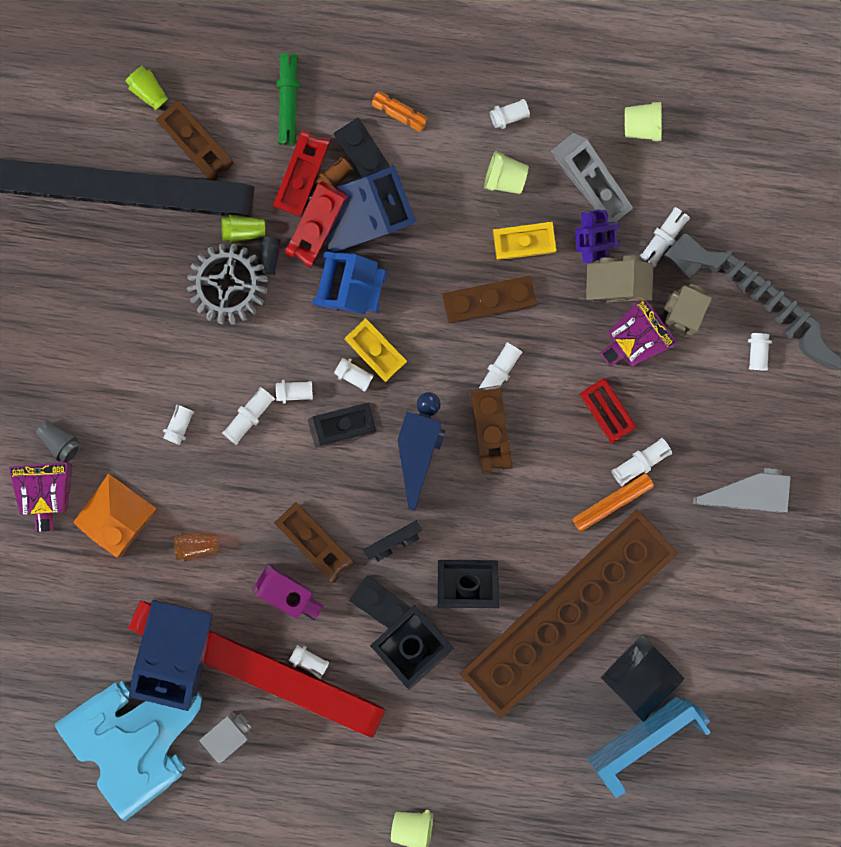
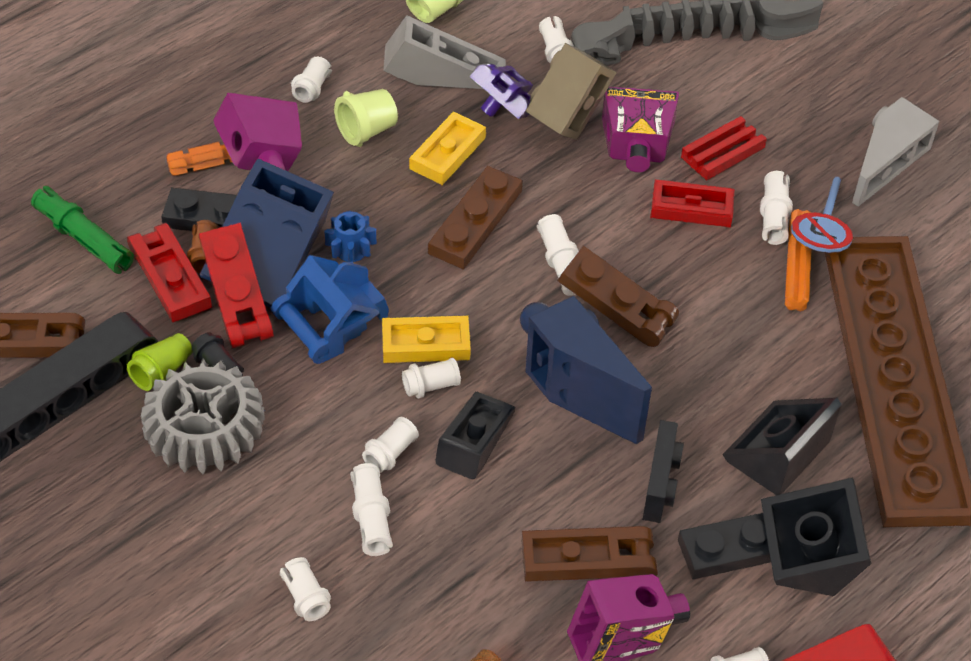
camera: 50 degrees left, 35 degrees down
(402, 243) = (350, 236): none -> blue gear
(432, 136) = (259, 130): none -> magenta torso
(638, 505) = (821, 230): none -> piece
(670, 383) = (718, 144): none -> red tile
(686, 309) = (654, 58): dark tan brick -> none
(759, 351) = (745, 58): white pin -> none

